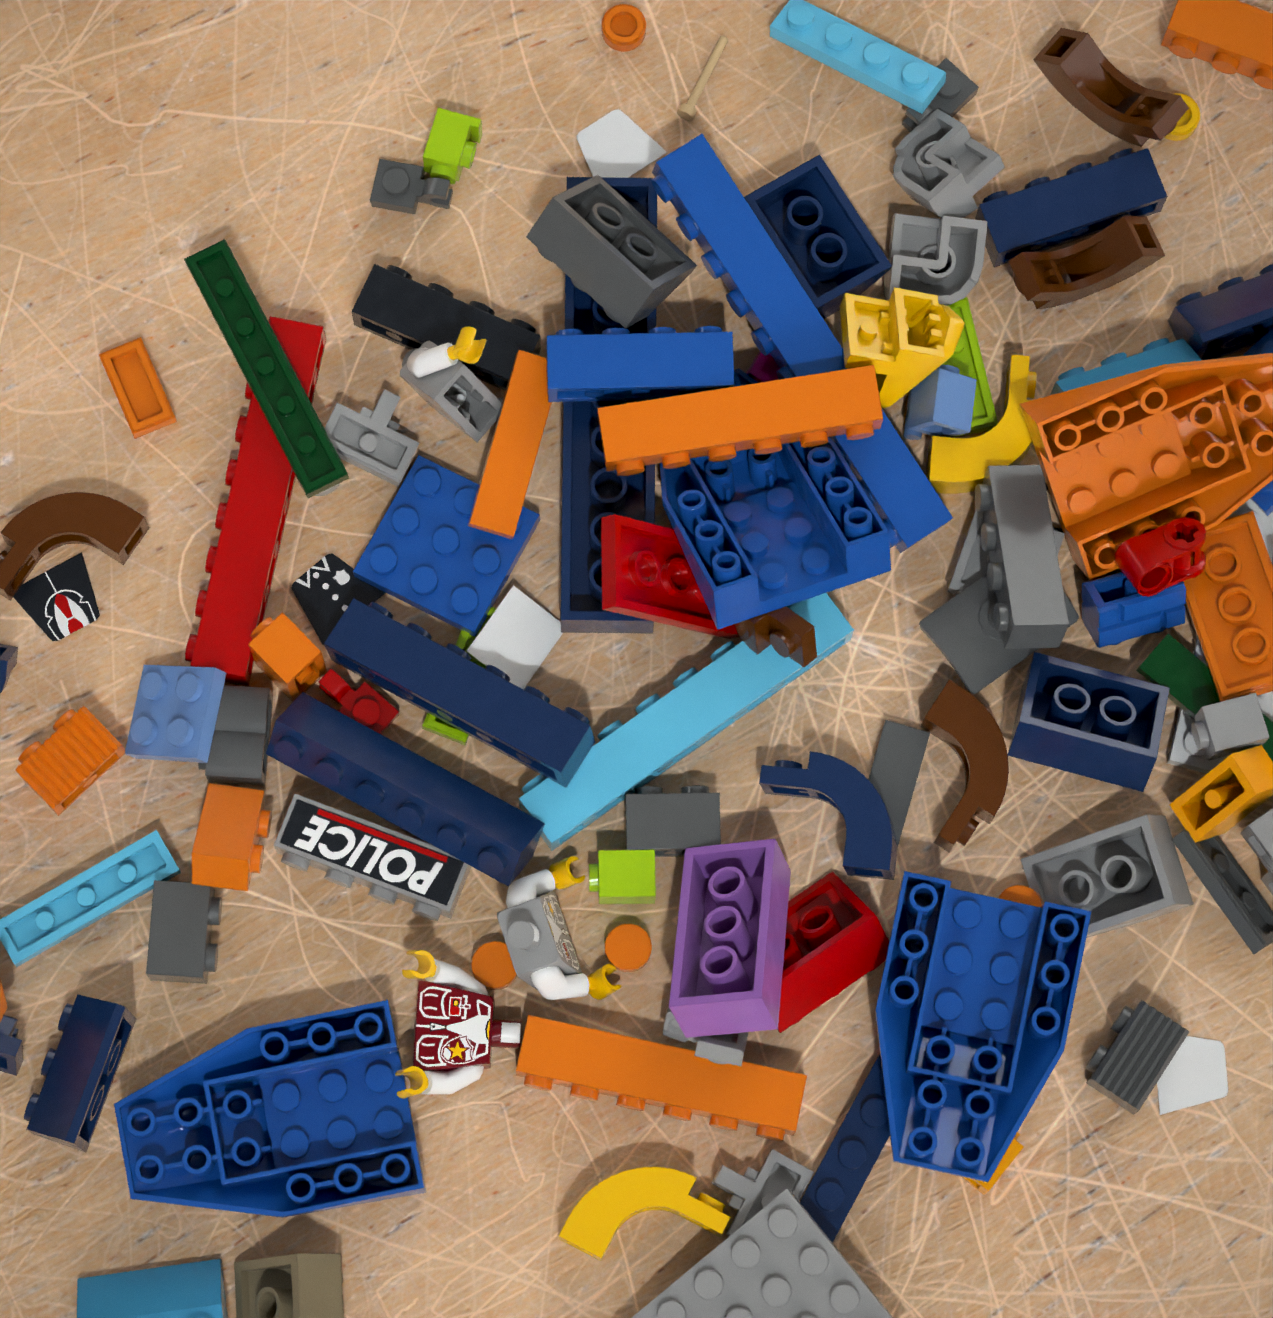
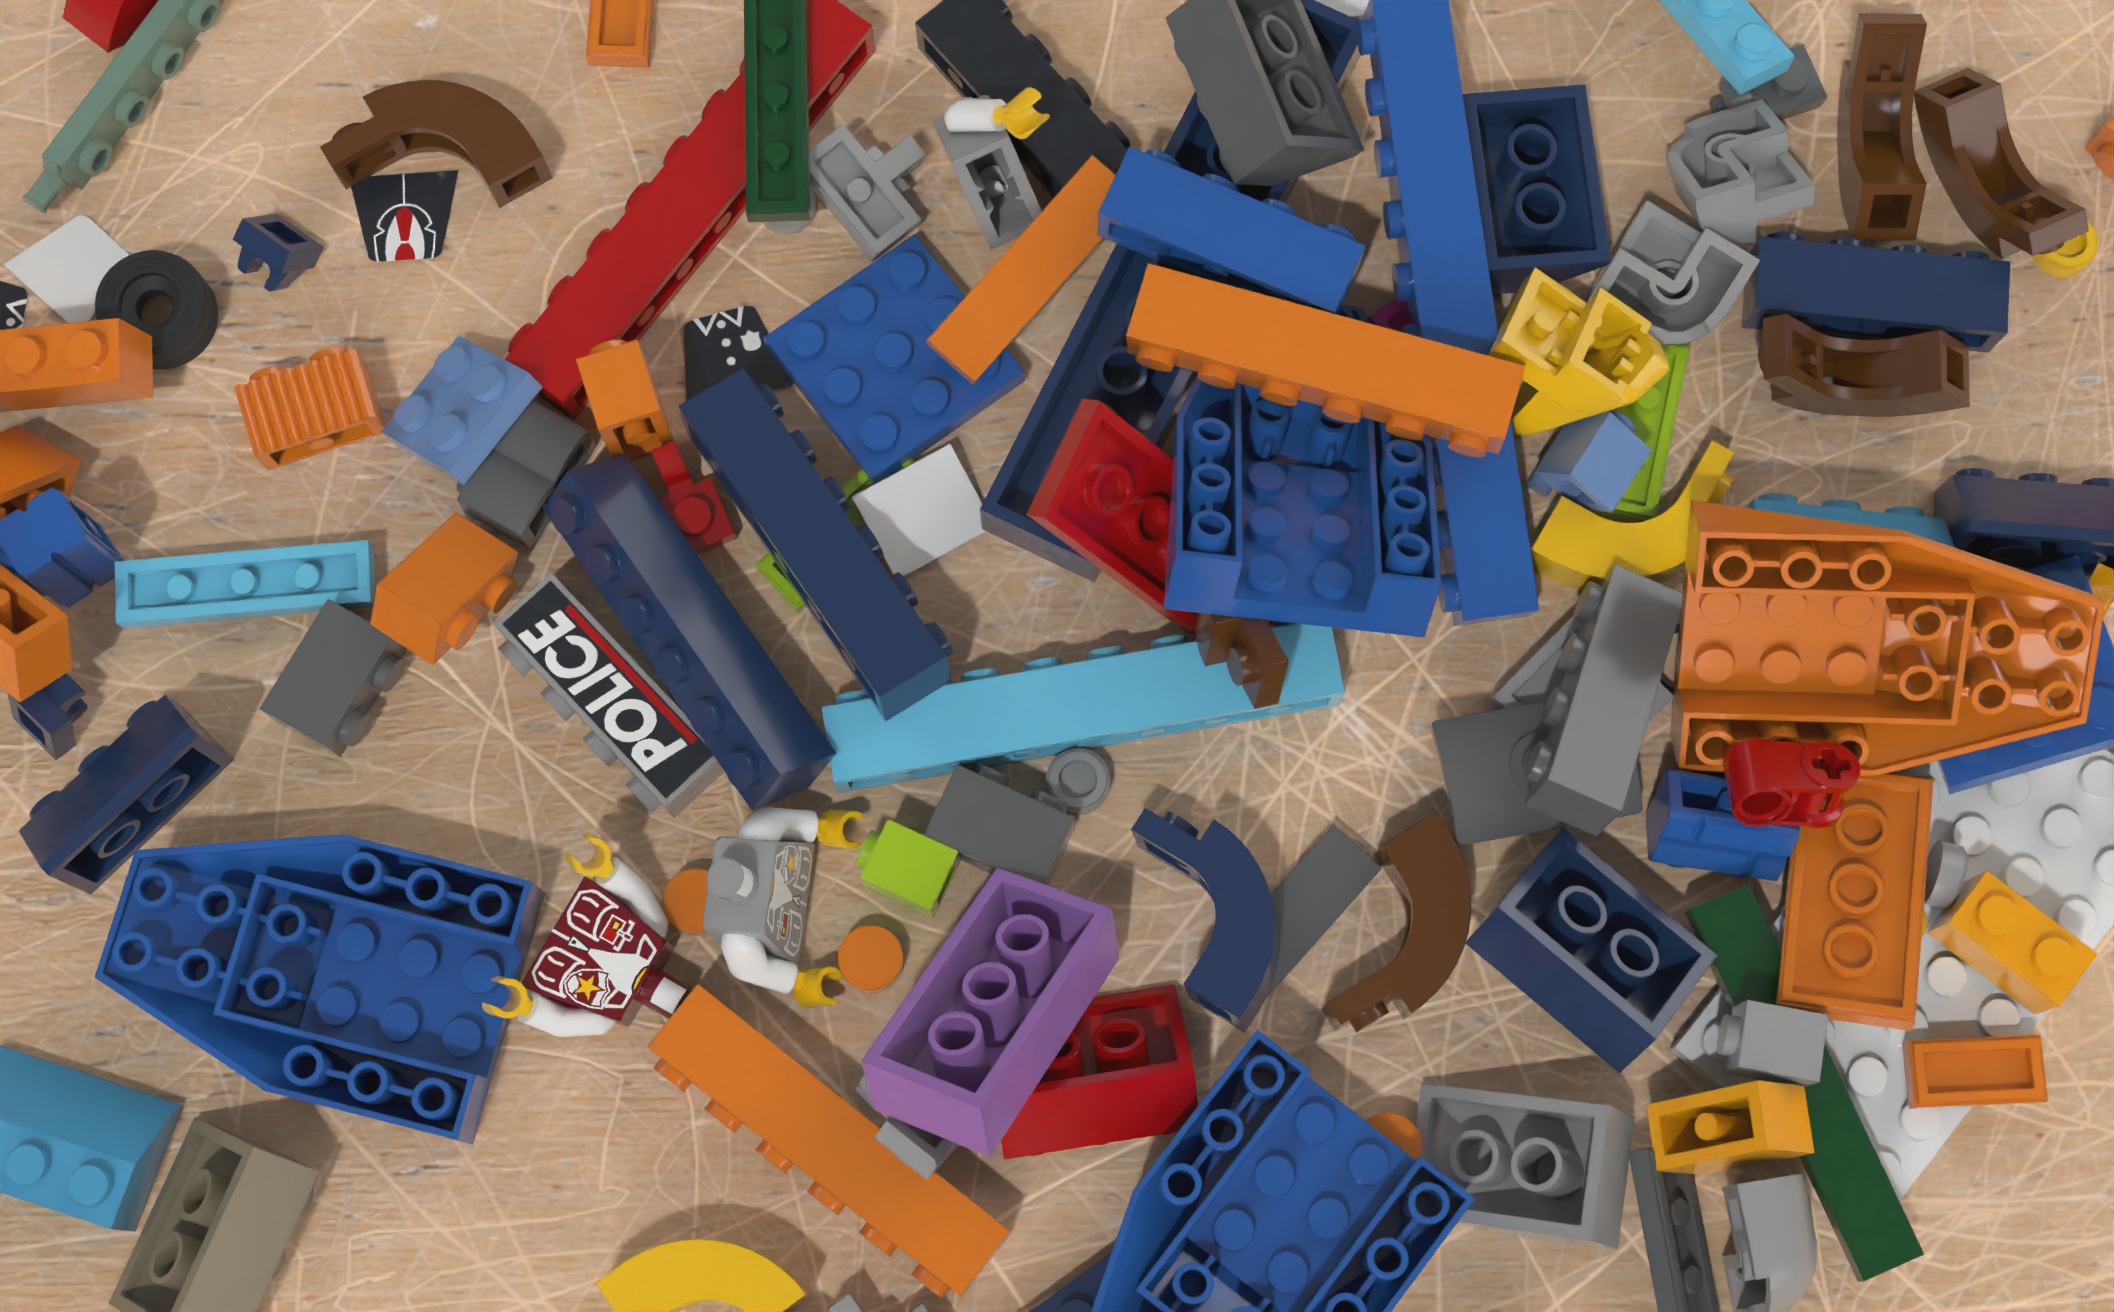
camera: 30 degrees right, 0 degrees up
(706, 767) = (1078, 780): none -> light grey tile
(1027, 111) = (1875, 149): none -> reddish brown arch

